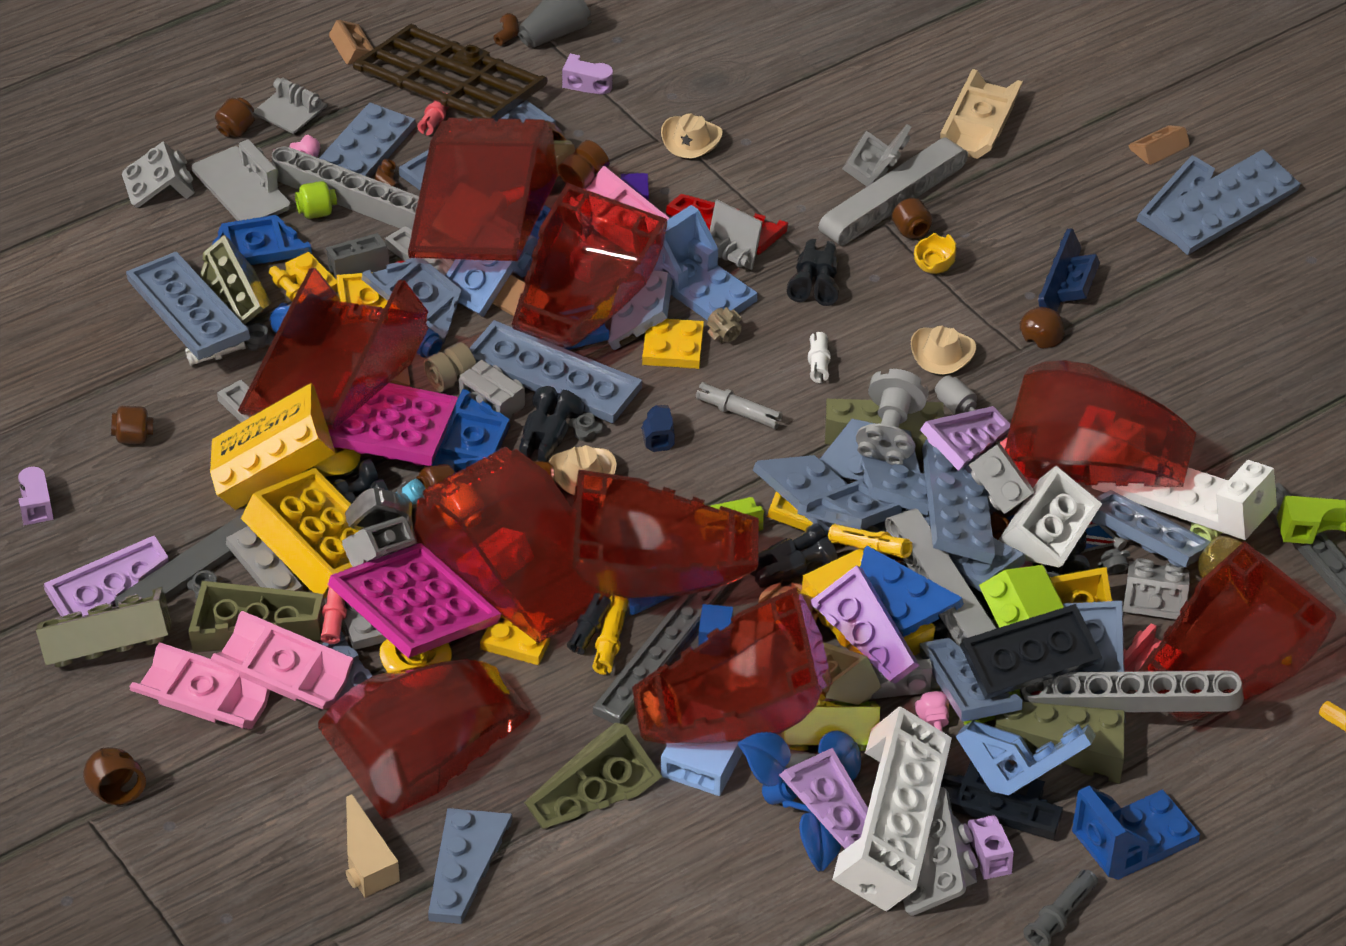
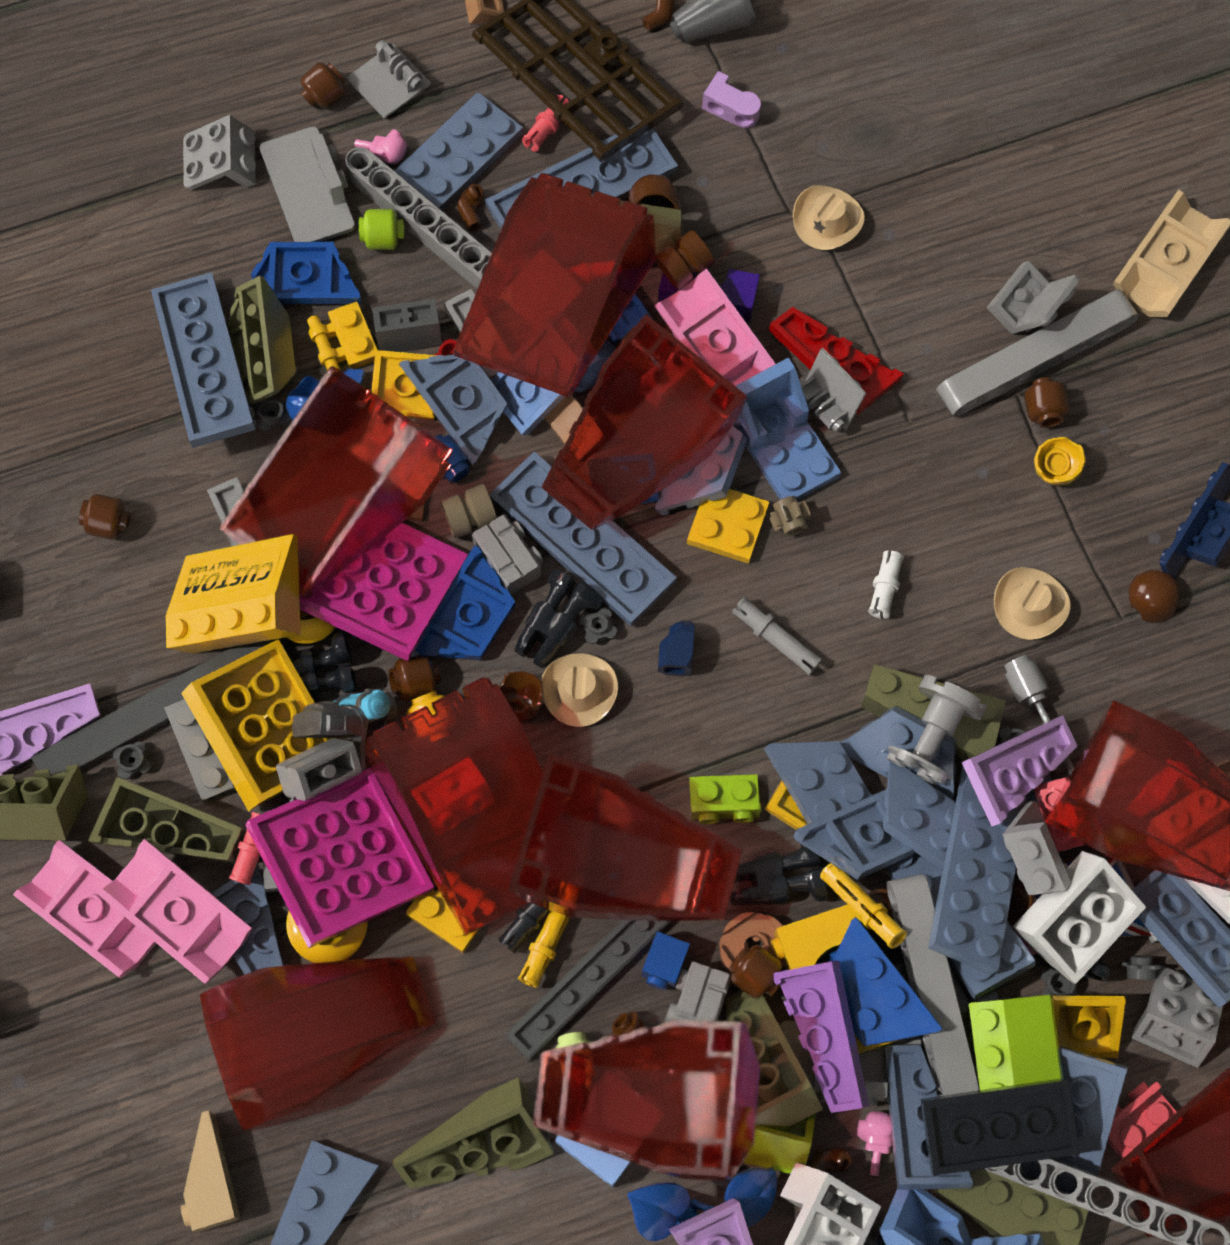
camera: 15 degrees right, 25 degrees up
(819, 264) = (917, 446): black piece -> none

